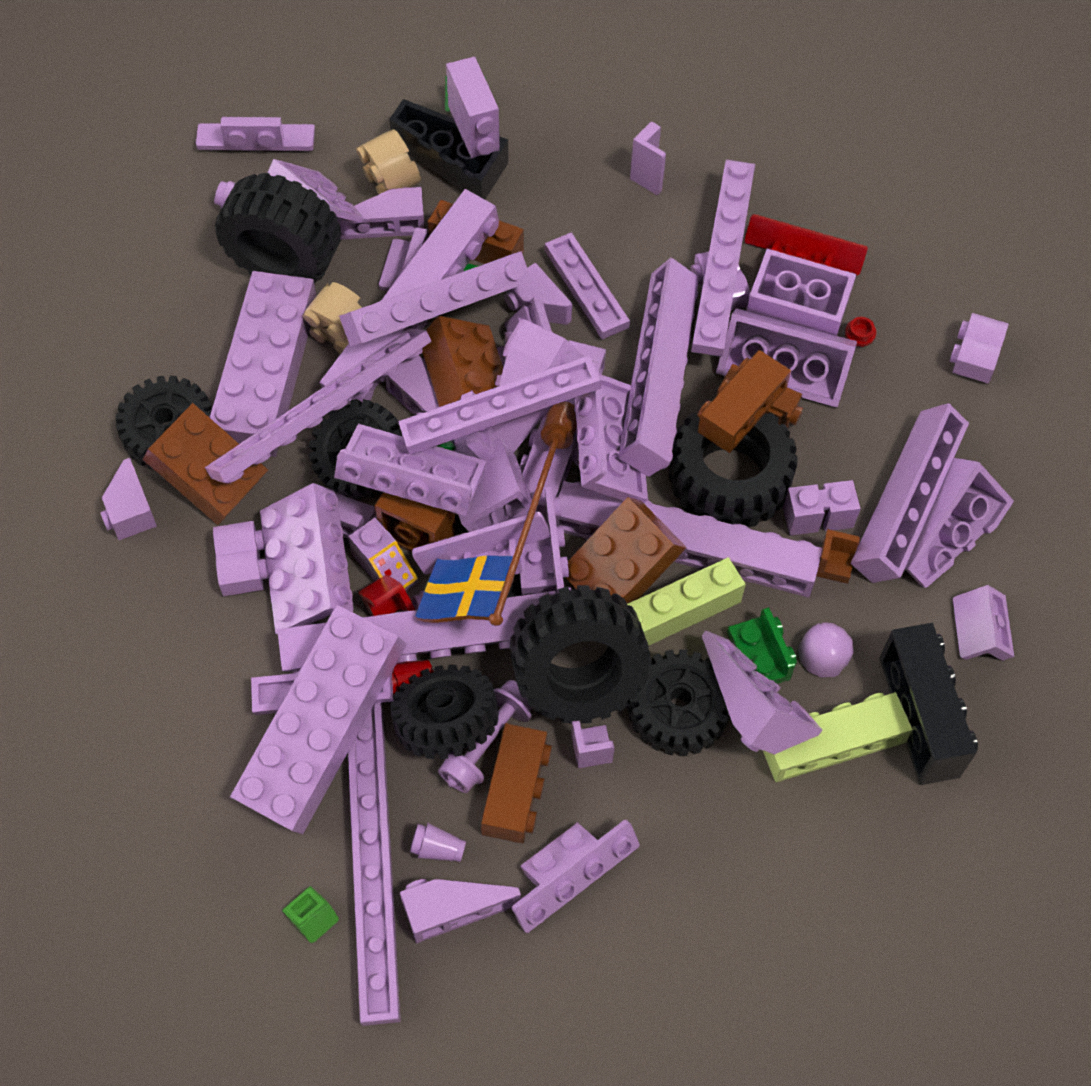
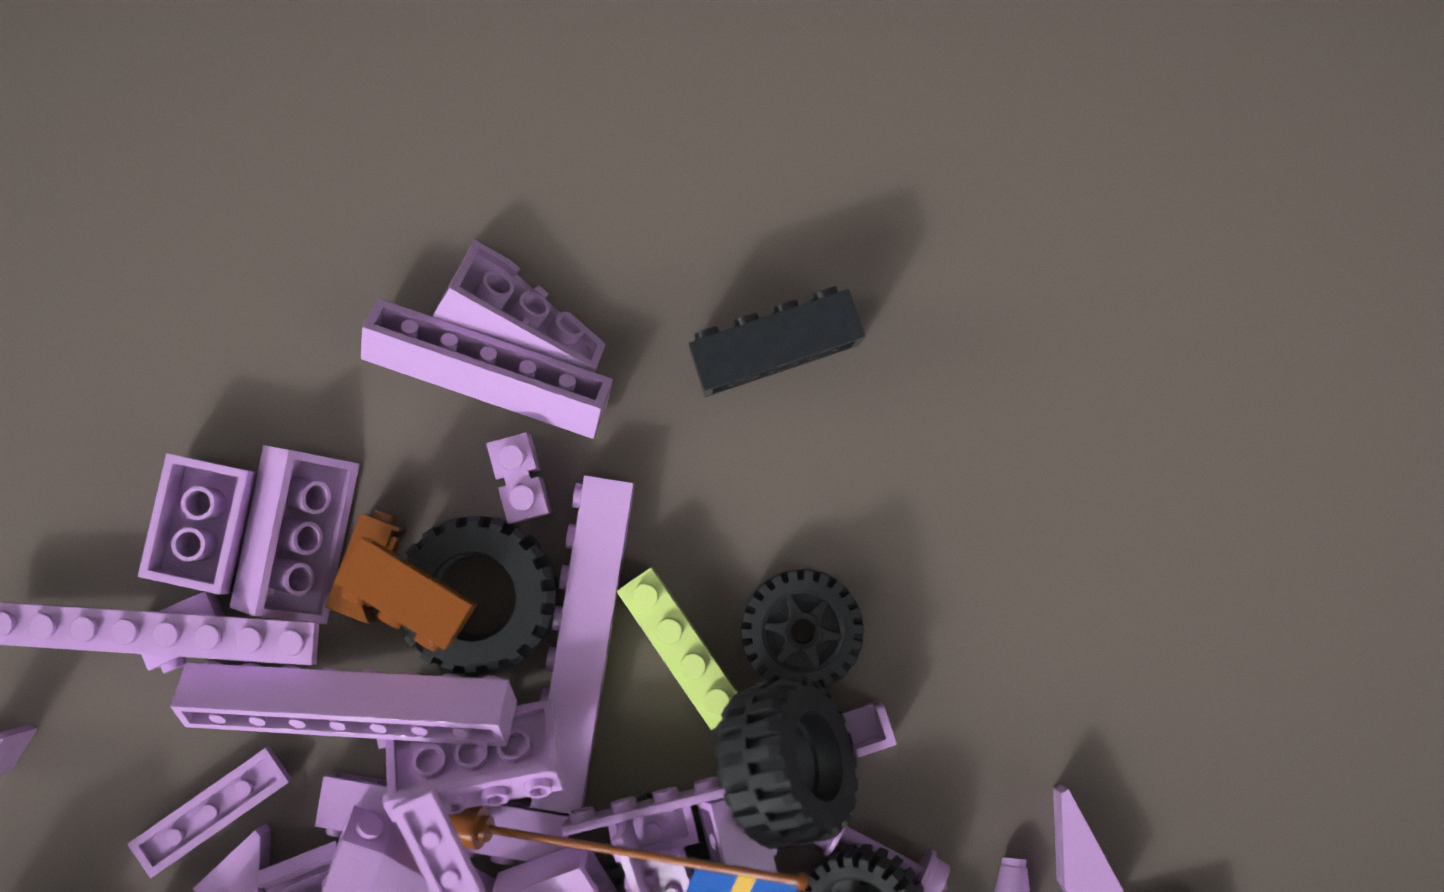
camera: 100 degrees left, 25 degrees up
(516, 784) = (930, 810): dark orange brick -> none
(568, 868) = (1017, 738): lavender bracket -> none
(626, 552) = (637, 721): dark orange brick -> none
(753, 703) = (812, 541): lavender wedge -> none
(764, 645) = (719, 539): green bracket -> none
(805, 244) = (115, 523): red bracket -> none
(825, 650) = (707, 461): lavender hair -> none
(837, 556) = (585, 455): dark orange panel -> none
(846, 735) = (821, 445): yellowish green brick -> none
(861, 330) = (240, 439): red plate -> none
(979, 348) = (248, 283): lavender brick -> none
(983, 624) = (650, 275): lavender panel -> none

